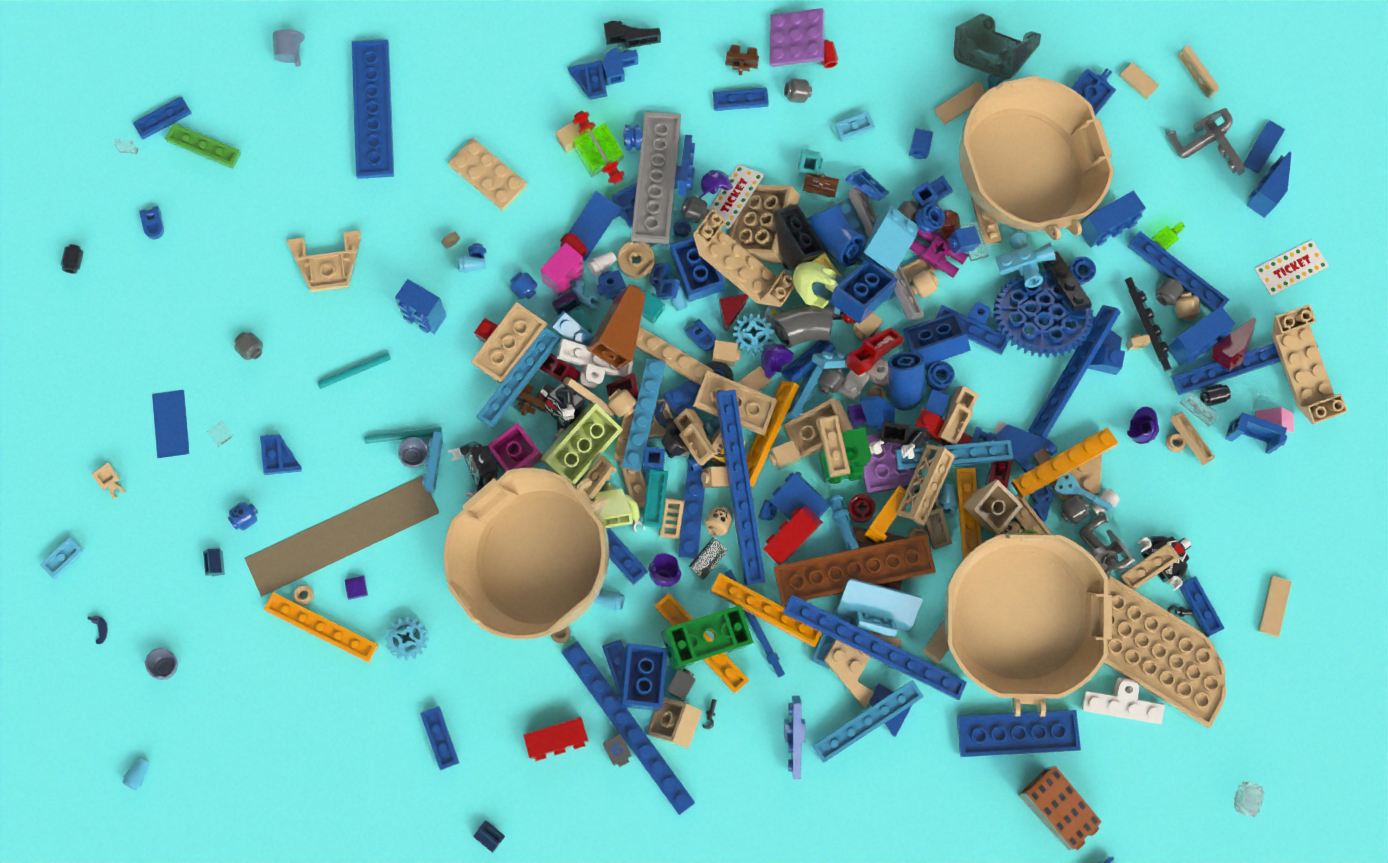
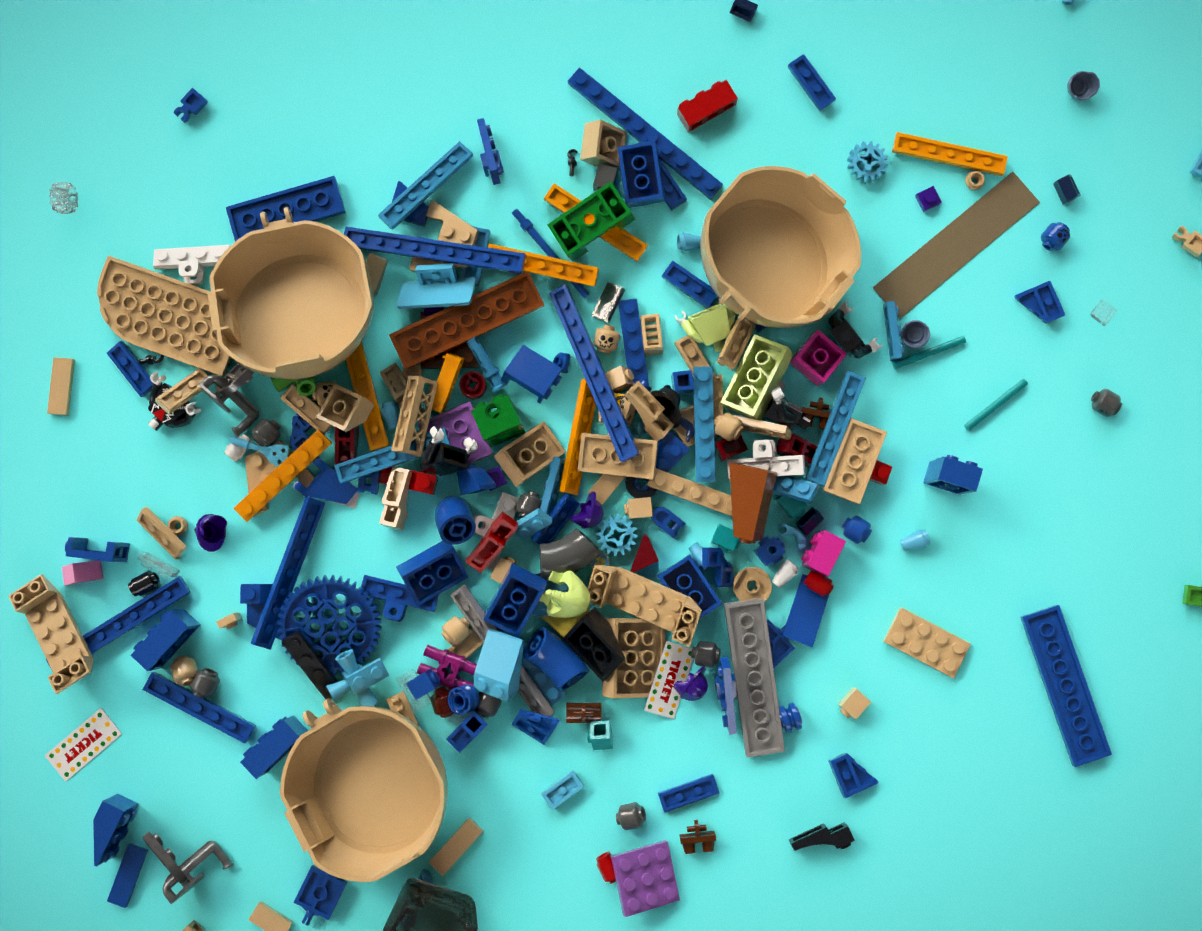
camera: 175 degrees right, 10 degrees up
(102, 628) = (1147, 109): dark blue piece -> none
(170, 424) = (1153, 311): blue sticker -> none
(287, 46) = (1176, 731): sand blue hat -> none
(327, 270) = (1054, 499): tan wing -> none
(450, 240) = (943, 560): dark tan tile -> none
(477, 250) = (913, 555): blue plate -> none
(597, 148) = (822, 693): clear neon green brick -> none
(615, 62) = (831, 798): blue brick -> none
(617, 751) = (648, 107): dark grey brick -> none
(655, 498) = (672, 344): teal plate -> none
(664, 570) = (645, 277): dark purple piece -> none
(682, 224) = (714, 626): blue plate -> none
(784, 455) = (558, 418): tan brick -> none
(792, 534) = (532, 338): red brick -> none
(833, 446) = (510, 412): tan tile -> none
(876, 390) = (481, 504): dark tan tile -> none
(920, 143) = (489, 786): blue brick -> none
(937, 402) = (420, 506): blue brick -> none
(940, 367) = (413, 533): blue wheel -> none
(1060, 808) = (237, 150): dark orange slope -> none
(1089, 267) = (289, 684): blue wheel -> none
(1147, 315) = (223, 647): black plate -> none
(1167, 236) = (215, 745): clear neon green plate -> none
(1232, 349) = (132, 630): slope -> none

